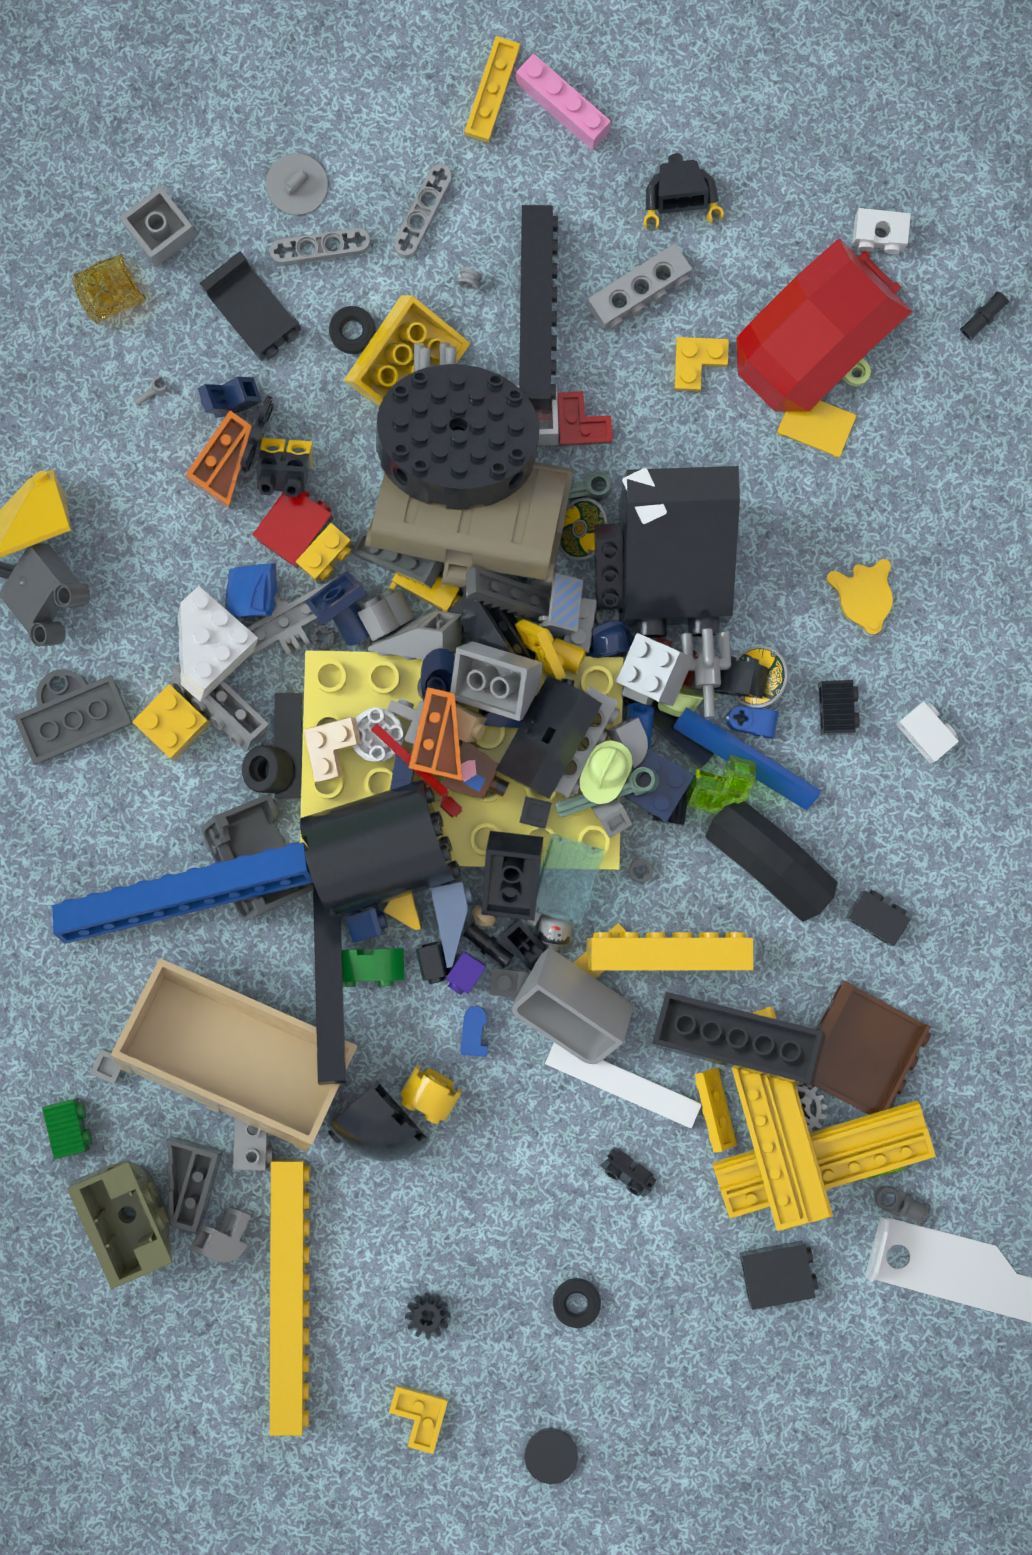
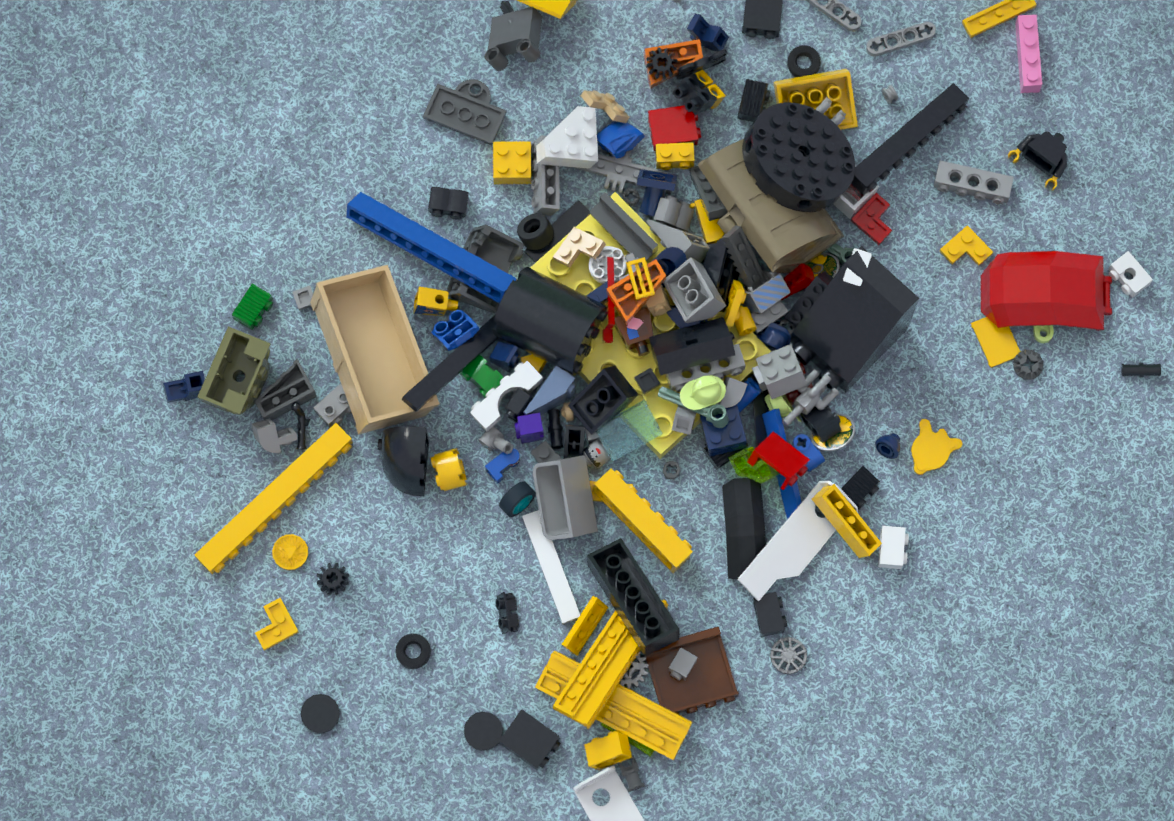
camera: 45 degrees right, 10 degrees down
(84, 1281) = (185, 388): none -> dark blue brick
(150, 826) = (448, 202): none -> black brick
(204, 567) = (607, 103): none -> tan plate
(225, 480) = (654, 60): none -> black gear
(232, 950) = (427, 299): none -> yellow torso
(239, 1197) = (302, 423): none -> black piece
(293, 951) = (456, 330): none -> blue slope
(343, 419) = (753, 100): none -> black brick
(355, 683) = (623, 228): none -> dark grey panel
(358, 1330) = (290, 552): none -> yellow wheel
(409, 1000) = (487, 411): none -> white arch
(412, 712) = (644, 294): none -> yellow tile
(441, 1018) = (494, 440): none -> light grey pin
(525, 1055) = (517, 499): none -> black wheel
(579, 549) = (800, 278): none -> red slope
(723, 1310) = (483, 731): none -> black tile
(741, 756) = (781, 457): none -> red panel
(823, 634) = (888, 445): none -> dark blue brick
(834, 820) = (790, 547): none -> white piece
(847, 1052) = (682, 664): none -> light grey brick
(861, 420) = (1024, 371): none -> dark grey gear
(863, 753) = (846, 521): none -> yellow brick
(865, 1210) = (607, 750): none -> yellow brick
(934, 937) = (788, 655): none -> light grey wheel

